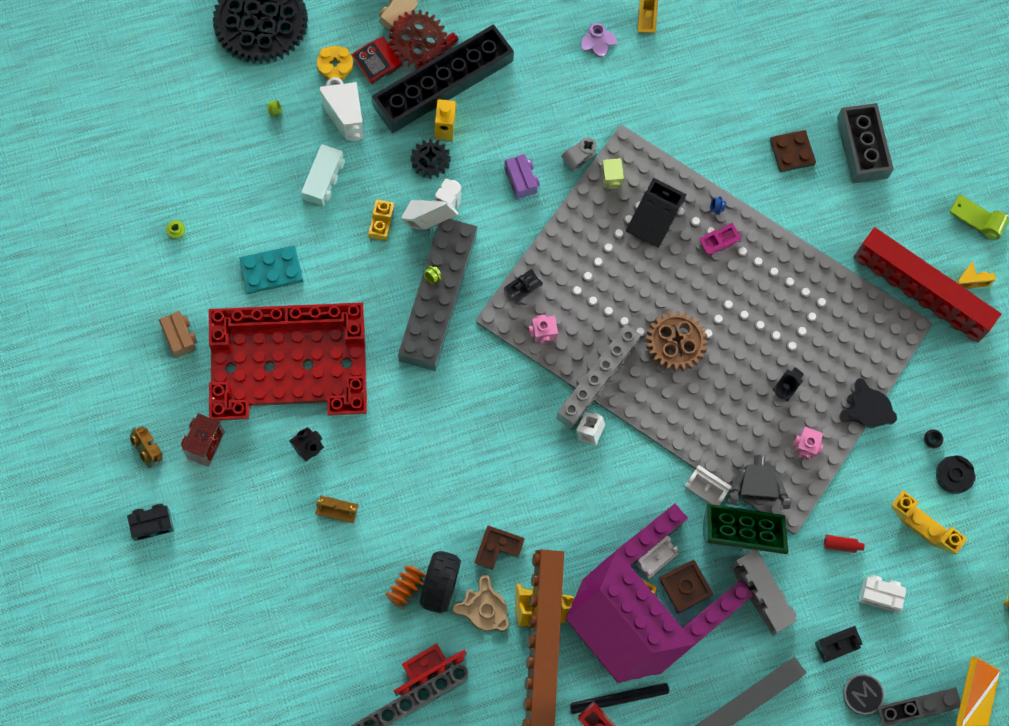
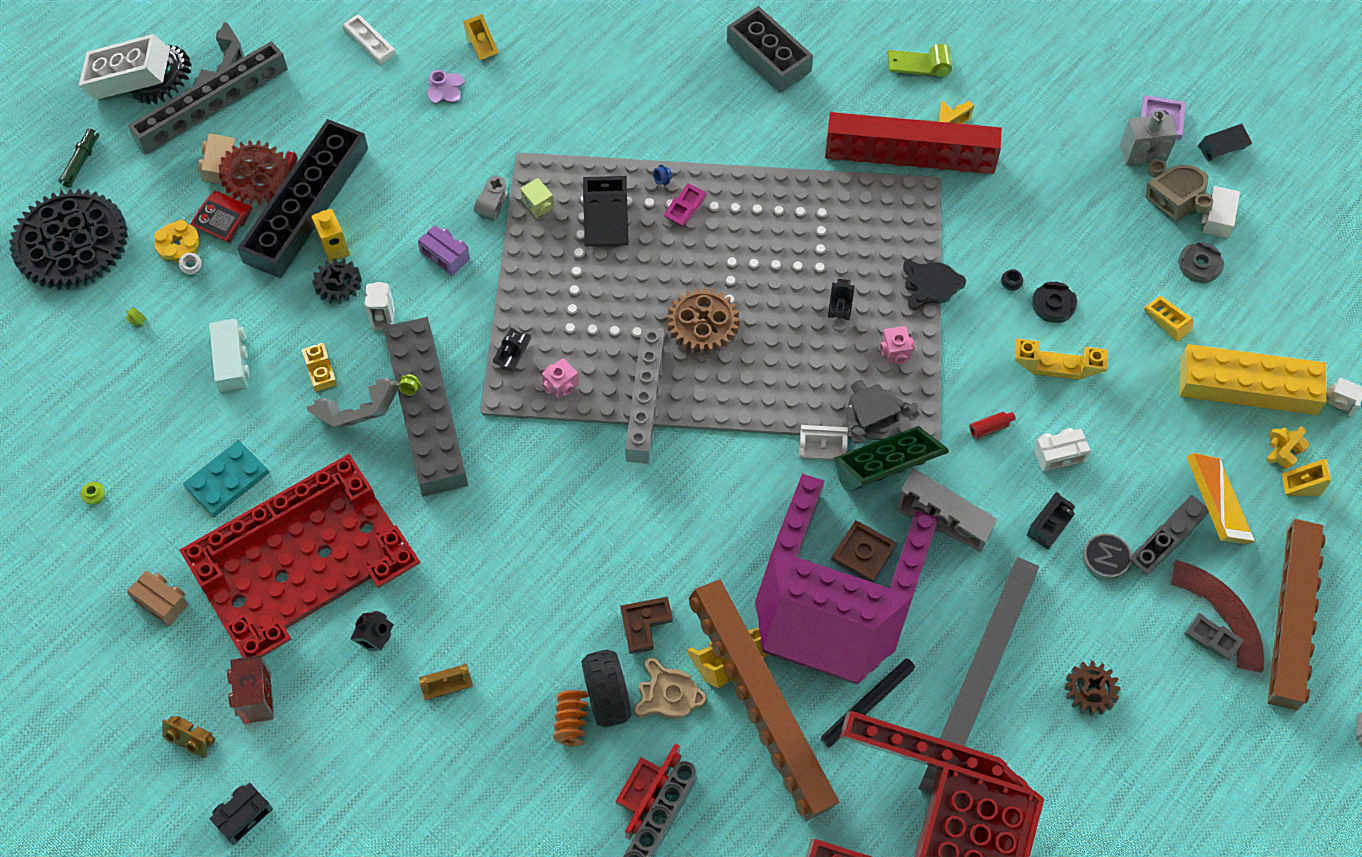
camera: 25 degrees left, 10 degrees down
(343, 108) = (214, 277): white slope -> none
(408, 271) = (381, 395): none -> light grey slope
(425, 214) = (366, 331): white slope -> none
(590, 428) = (668, 451): white brick -> none
(657, 557) = (817, 538): white hinge -> none
(792, 151) = (703, 92): reddish brown plate -> none

